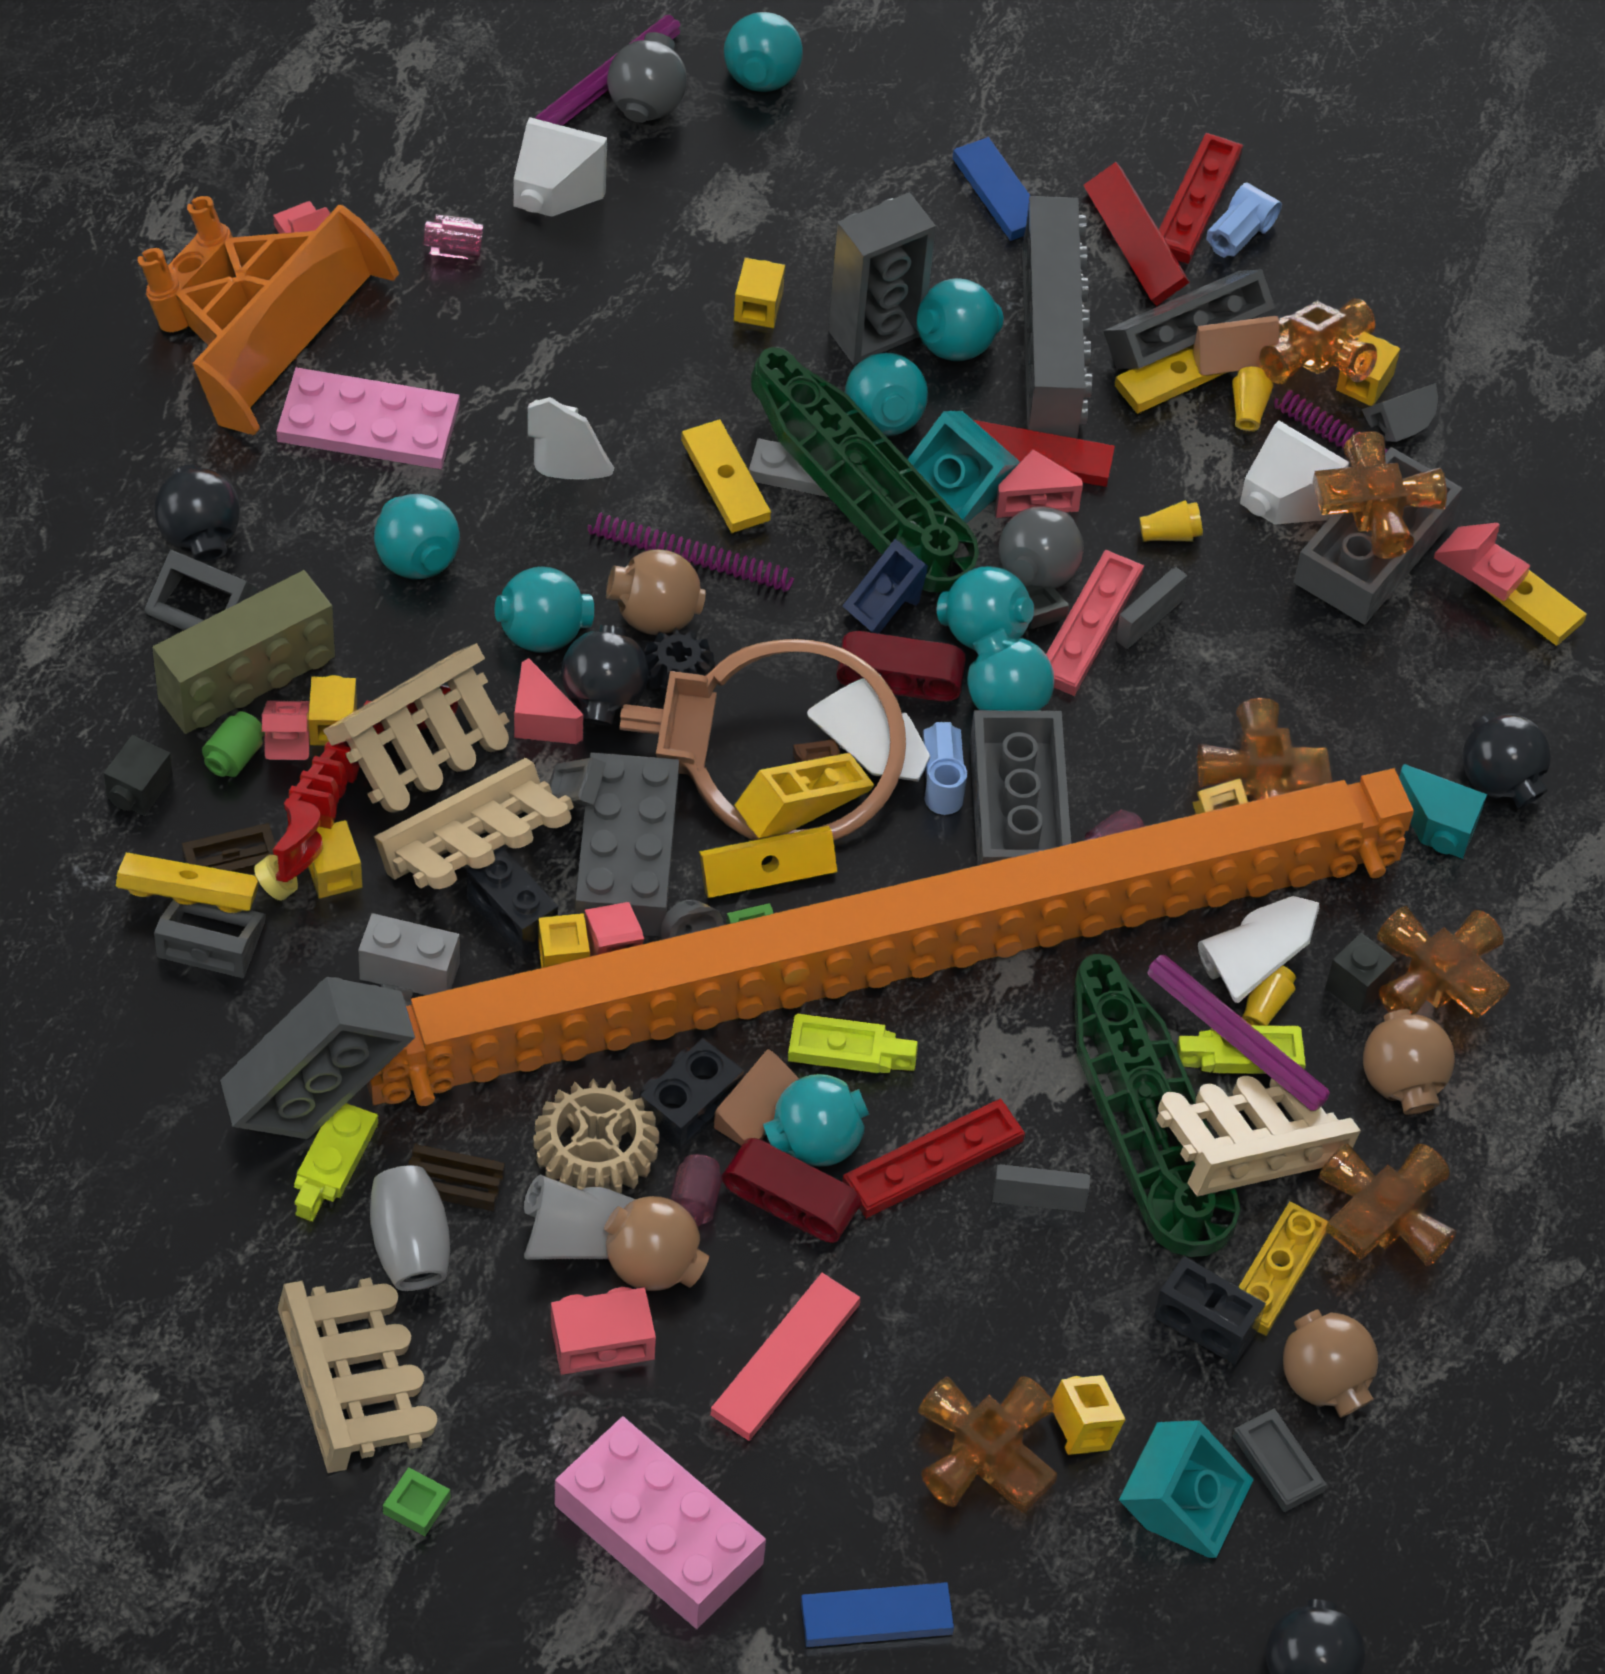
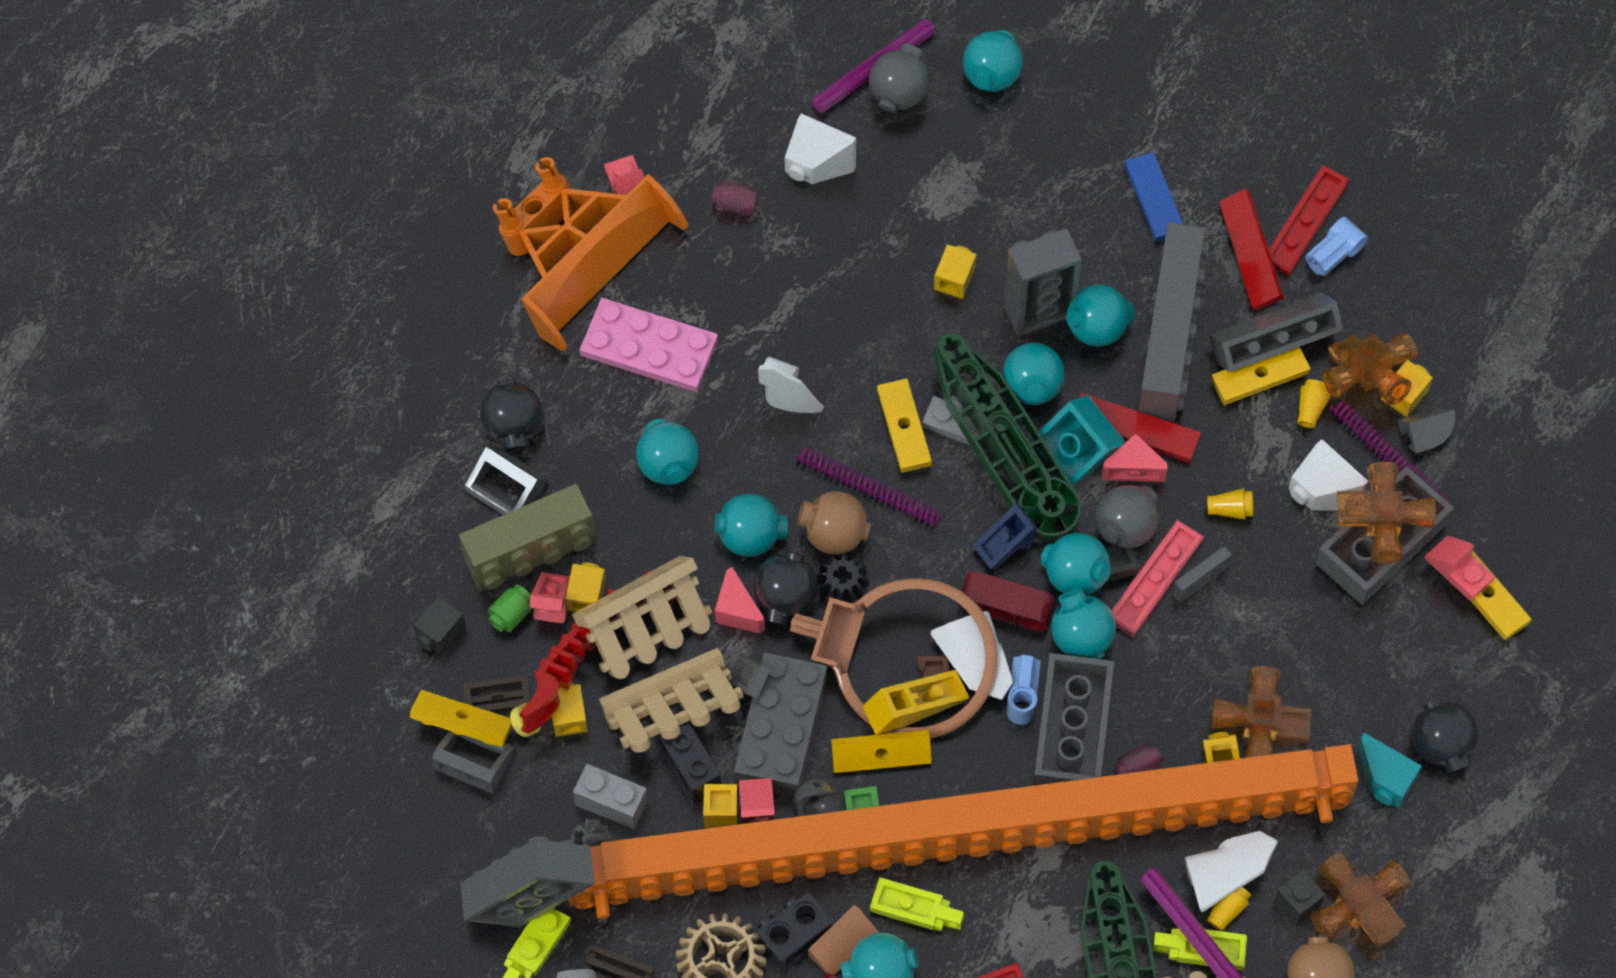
camera: 15 degrees right, 10 degrees up
(1233, 344) = (1305, 361): nougat slope -> none

